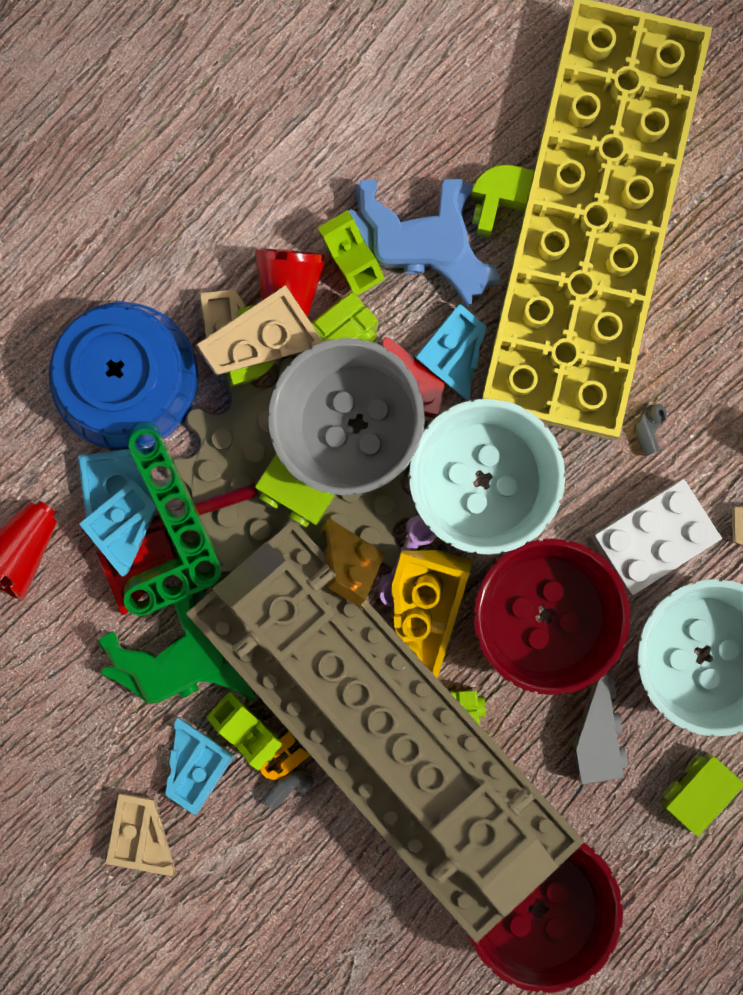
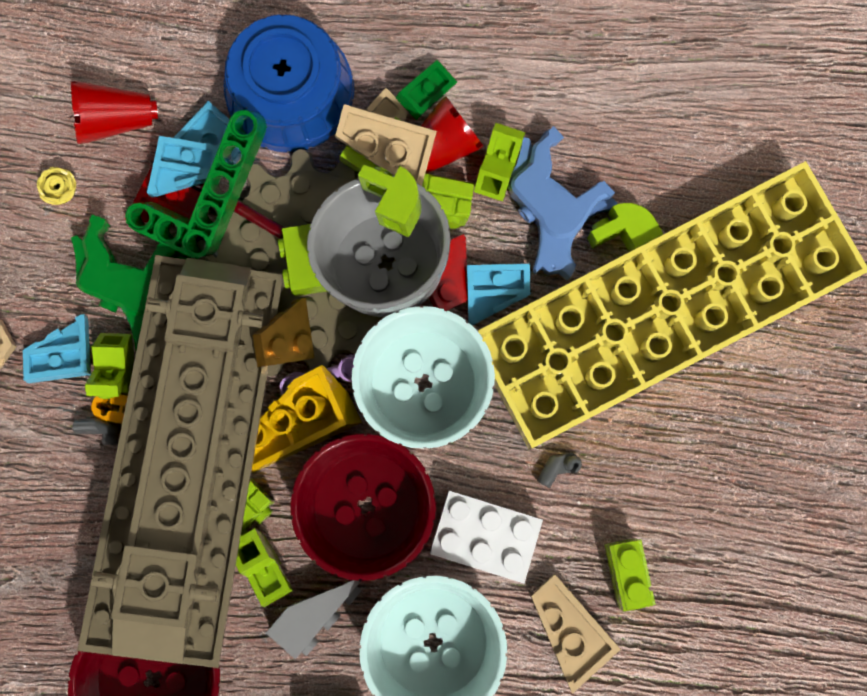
camera: 50 degrees right, 5 degrees down
(33, 657) = (52, 177): none -> light yellow plate
(231, 259) = (426, 89): none -> green plate
(327, 365) = (399, 194): none -> lime brick
(527, 743) = (262, 568): none -> lime brick

